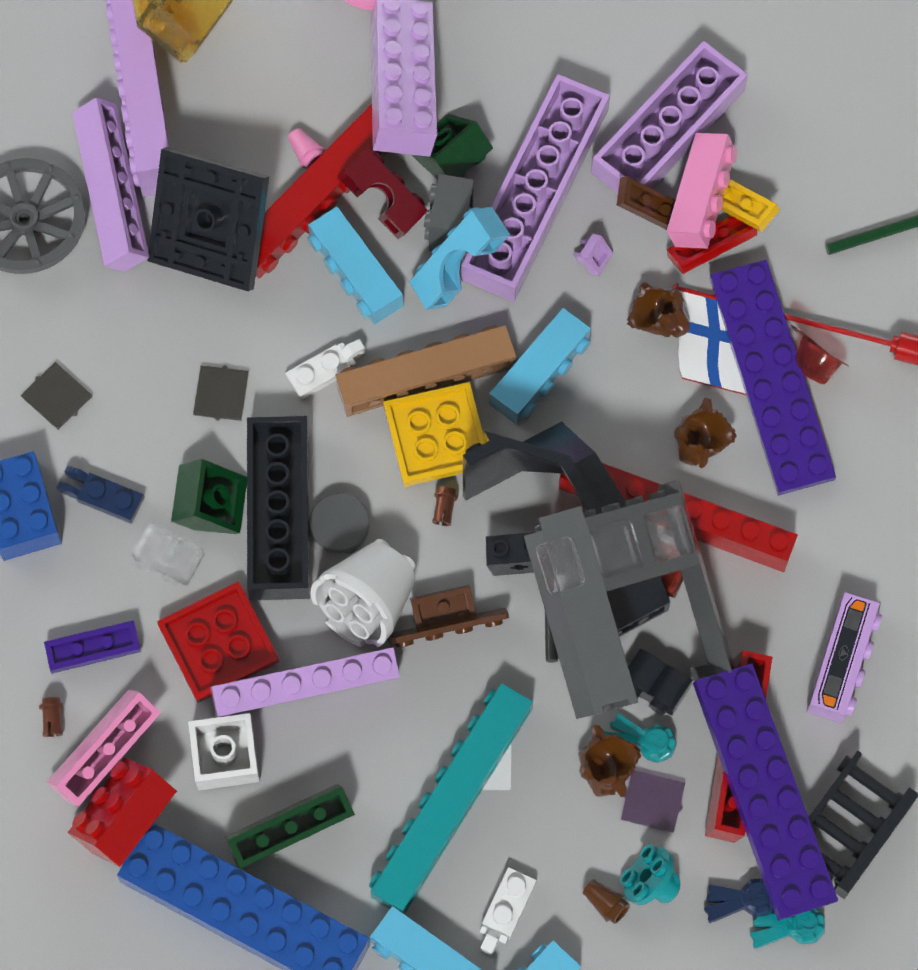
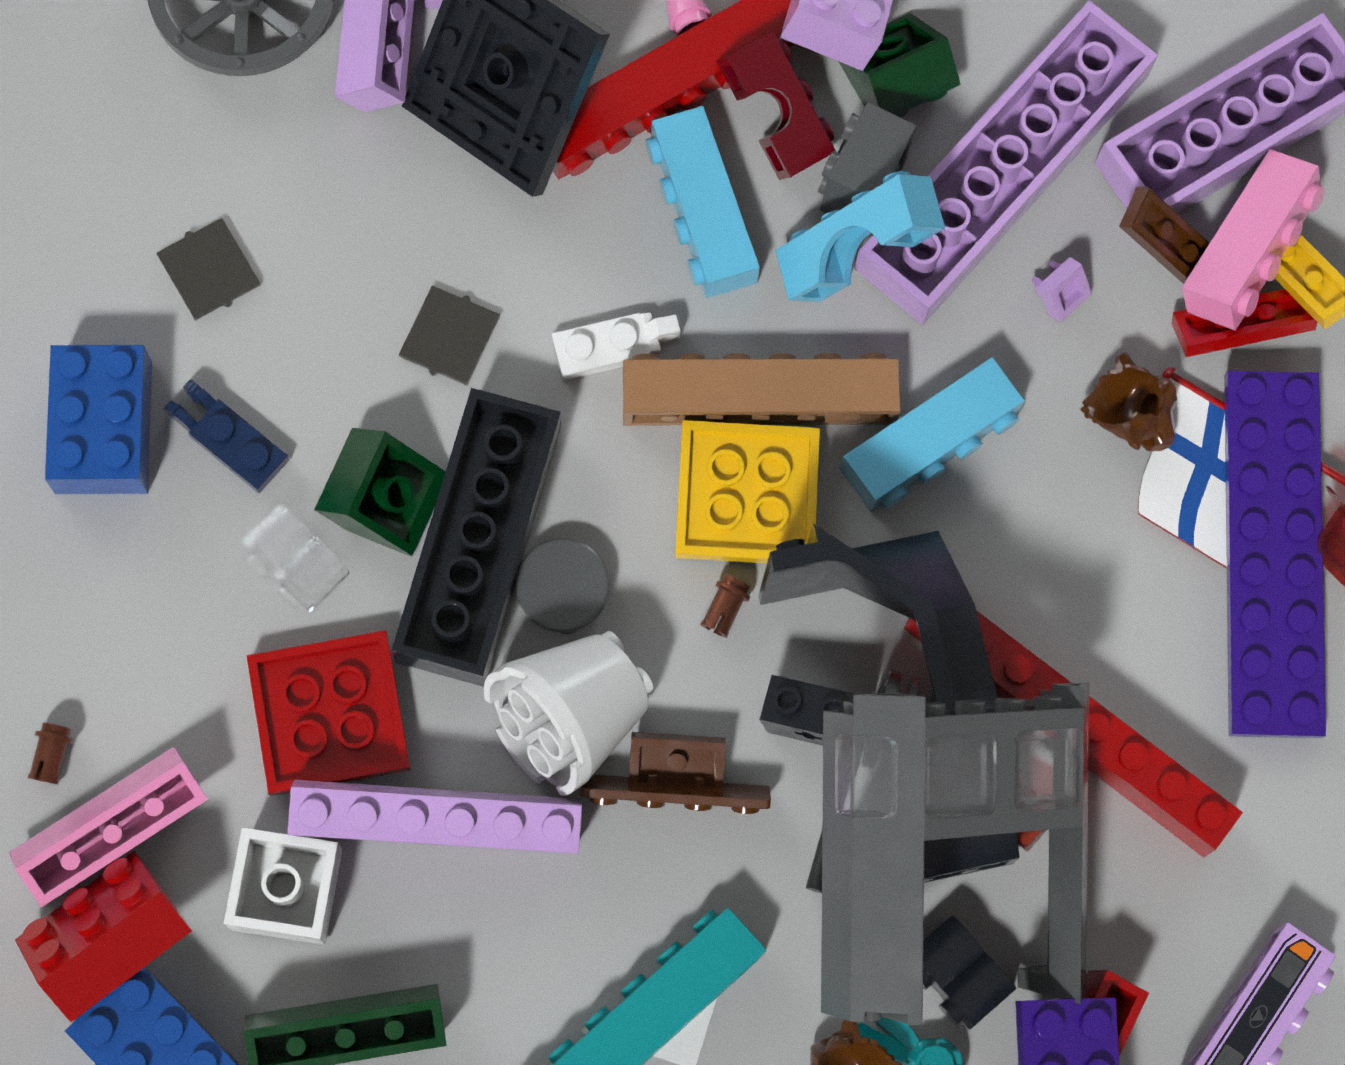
camera: 10 degrees right, 5 degrees up
(92, 647) = (141, 664): dark purple plate -> none
(703, 435) = (1144, 613): reddish brown hair -> none

